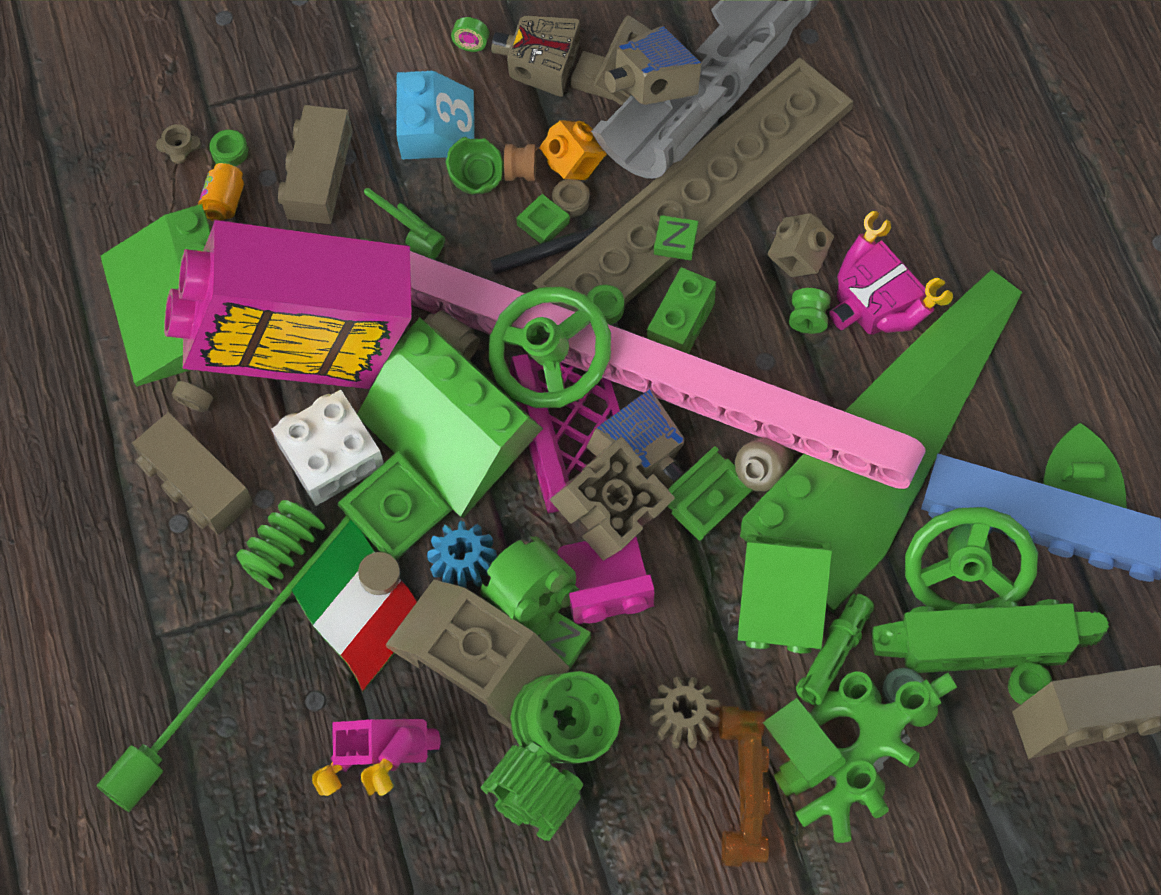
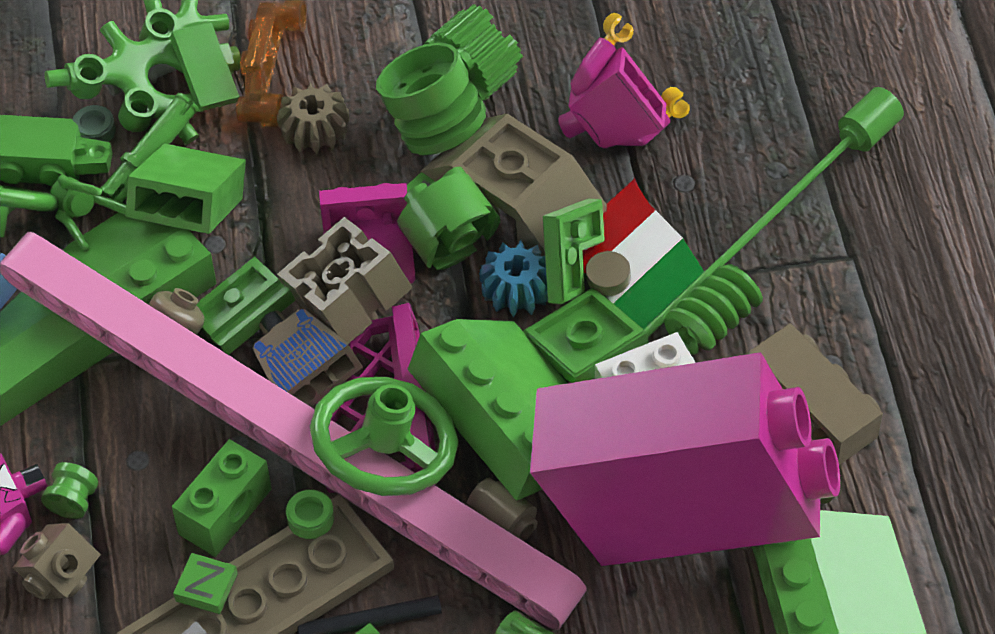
camera: 175 degrees left, 10 degrees down
(415, 568) = (565, 237): none -> bright green tile
(892, 586) = (77, 200): none -> bright green plant

